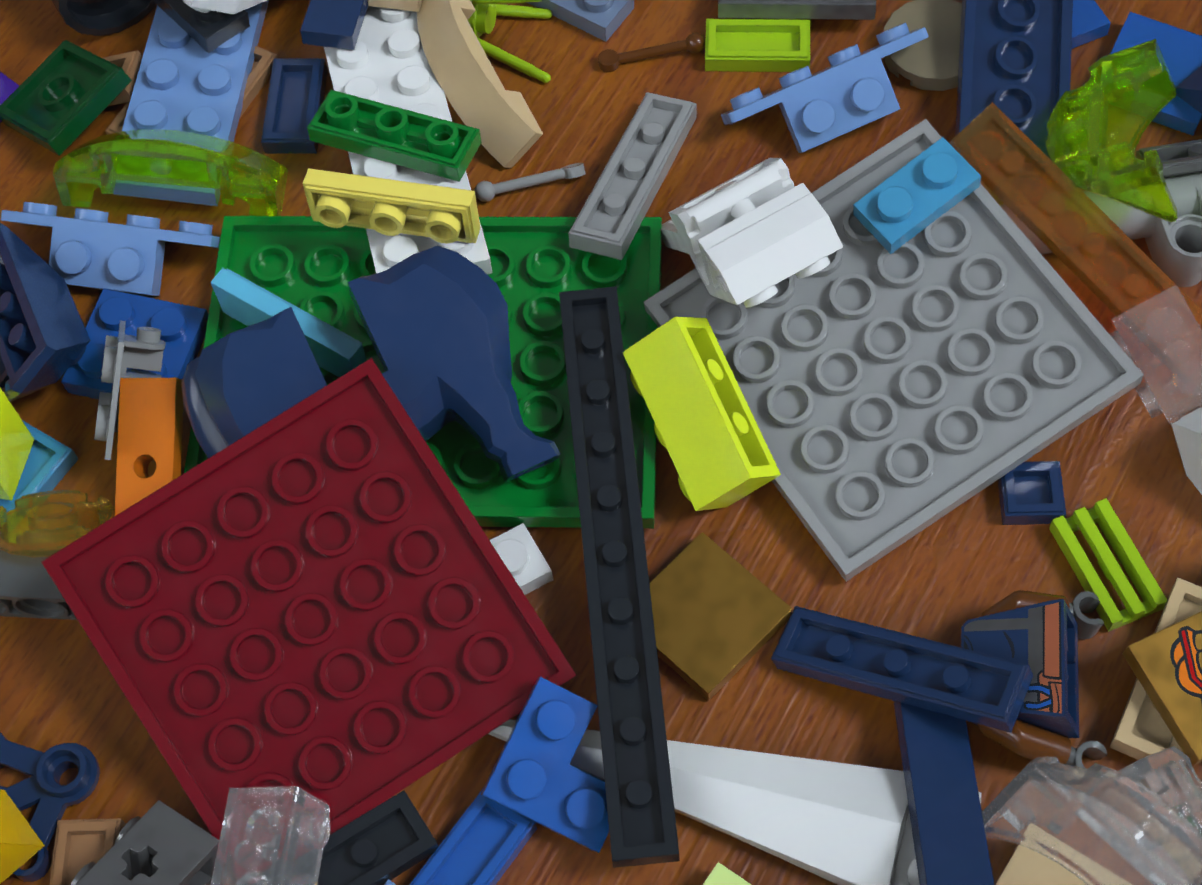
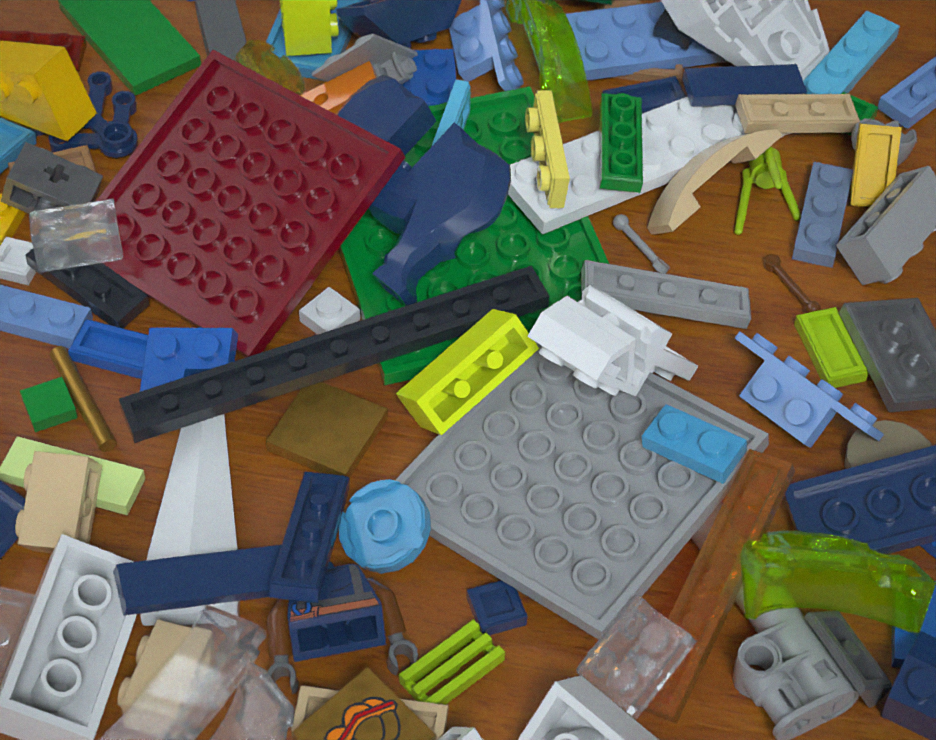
camera: 65 degrees right, 10 degrees down
(896, 577) = (385, 526): none -> dark azure tile

